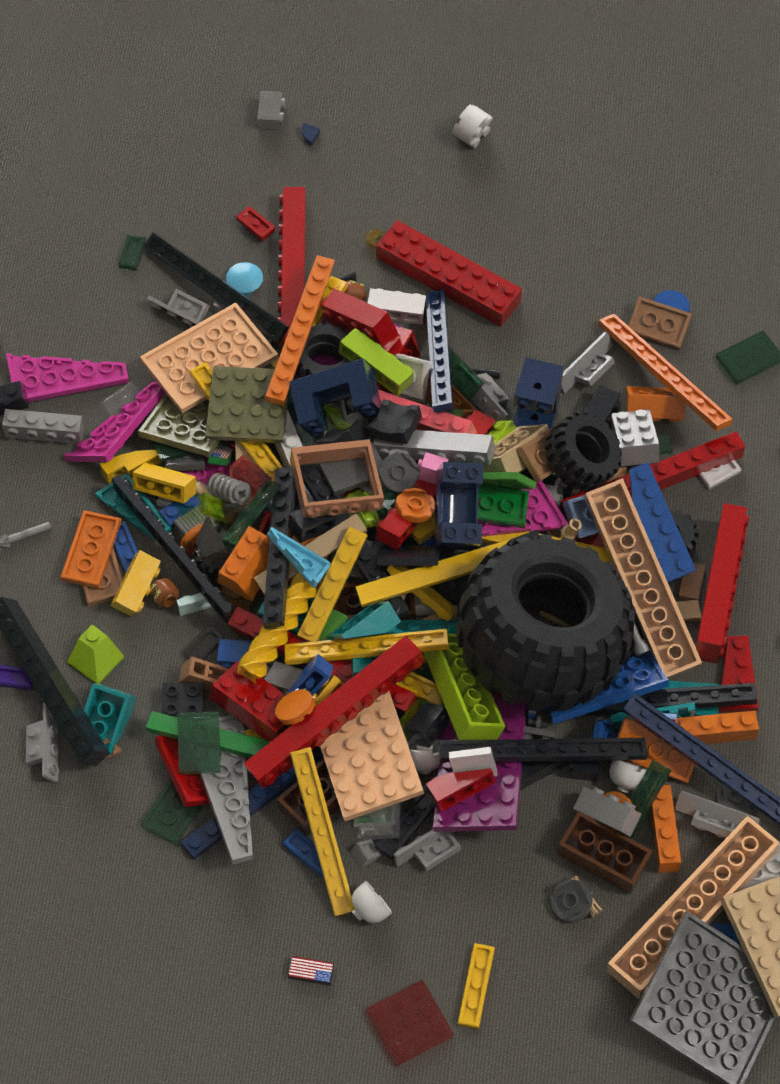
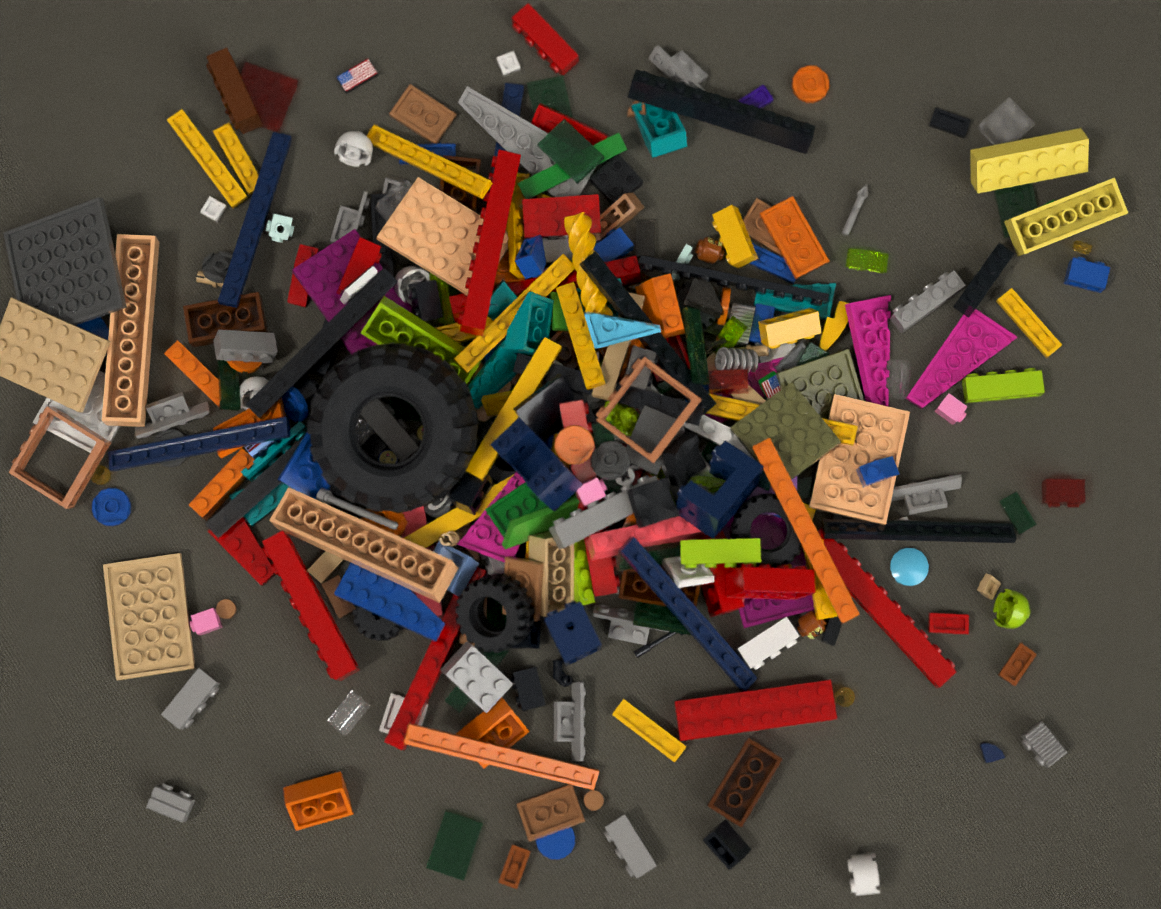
camera: 140 degrees right, 20 degrees up
(52, 332) = (1003, 386): none -> lime brick
(54, 491) = (867, 260): none -> clear neon green slope
(87, 237) = (1063, 492): none -> clear red brick
(95, 655) = (711, 164): lime slope -> none
(105, 346) = (951, 409): none -> bright pink brick
(127, 863) = (544, 39): none -> red brick
(174, 873) = (508, 63): none -> white tile
(203, 223) = (989, 586): none -> tan plate
(205, 196) = (1011, 609): none -> lime cylinder
(207, 333) = (877, 471): none -> blue slope
(235, 166) = (1017, 664): none -> dark orange plate
(286, 891) = (422, 114): none -> medium nougat tile
(294, 707) = (521, 220): orange tile -> none
(433, 1028) = (233, 91): none -> reddish brown brick
(492, 891) = (276, 221): none -> light aqua brick
(501, 235) = (744, 782): none -> reddish brown brick
(502, 842) = (297, 294): none -> red slope
(504, 1007) = (207, 158): none -> yellow plate
(507, 912) = (254, 220): none -> dark blue plate
(535, 961) = (213, 209): none -> white tile
(537, 320) = (649, 730): none -> yellow plate
(550, 210) = (727, 844): none -> black brick
(569, 402) = (559, 675): none -> black arm
(620, 309) = (593, 800): none -> medium nougat tile
(621, 261) = (629, 846): none -> light grey brick
(717, 311) = (514, 866): none -> dark orange plate
(756, 499) = (348, 713): none -> clear slope

